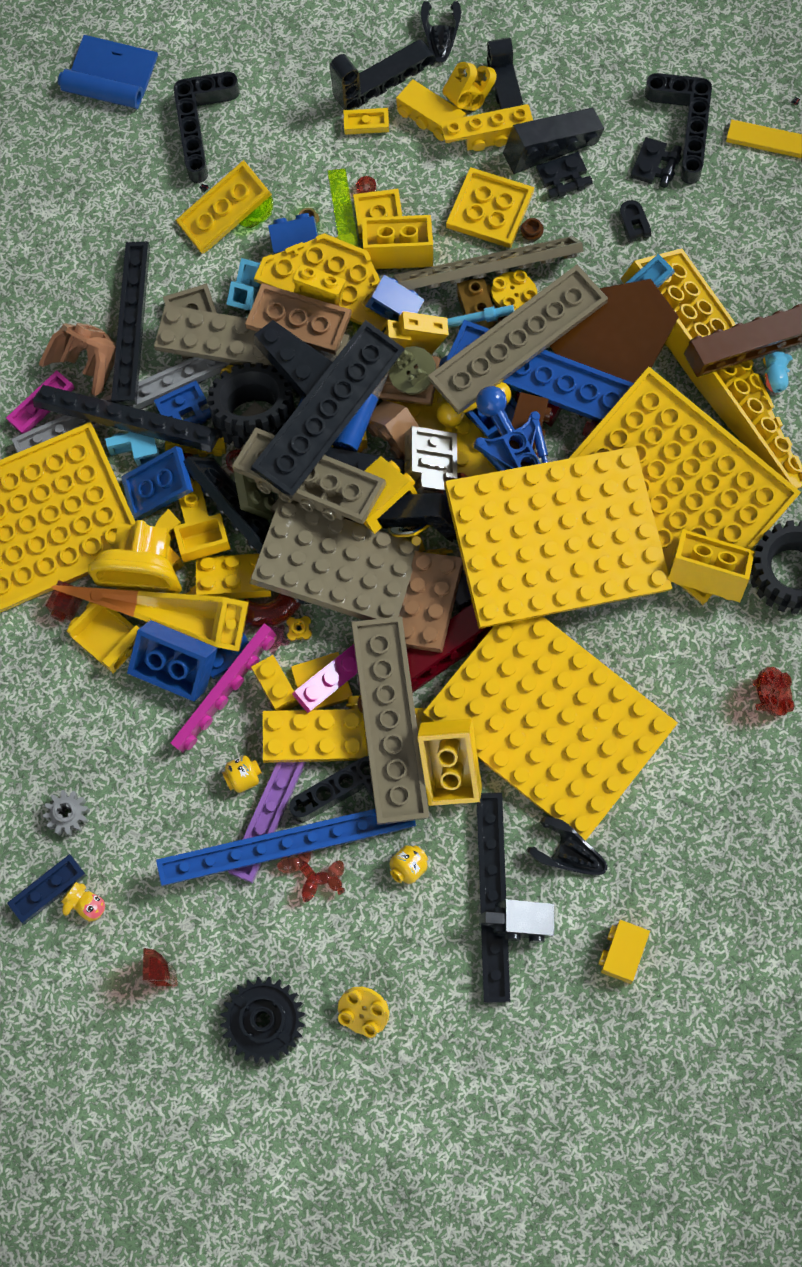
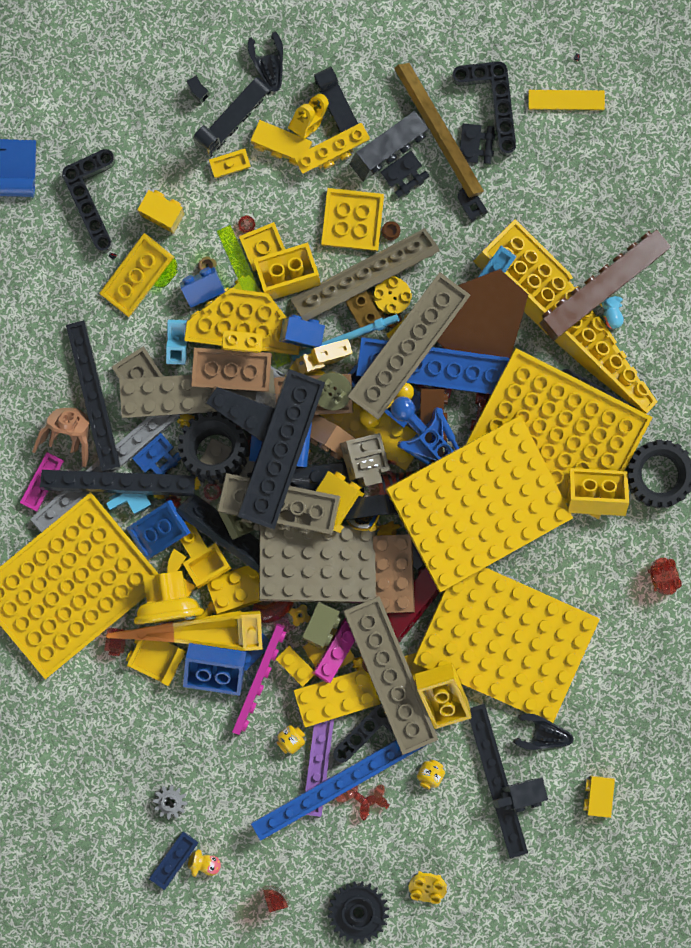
camera: 20 degrees left, 15 degrees up
(272, 145) = (161, 211): none -> yellow brick
(319, 639) = (320, 626): none -> olive brick
(353, 39) = (197, 89): none -> black piece
(616, 135) = (439, 129): none -> pearl gold tile

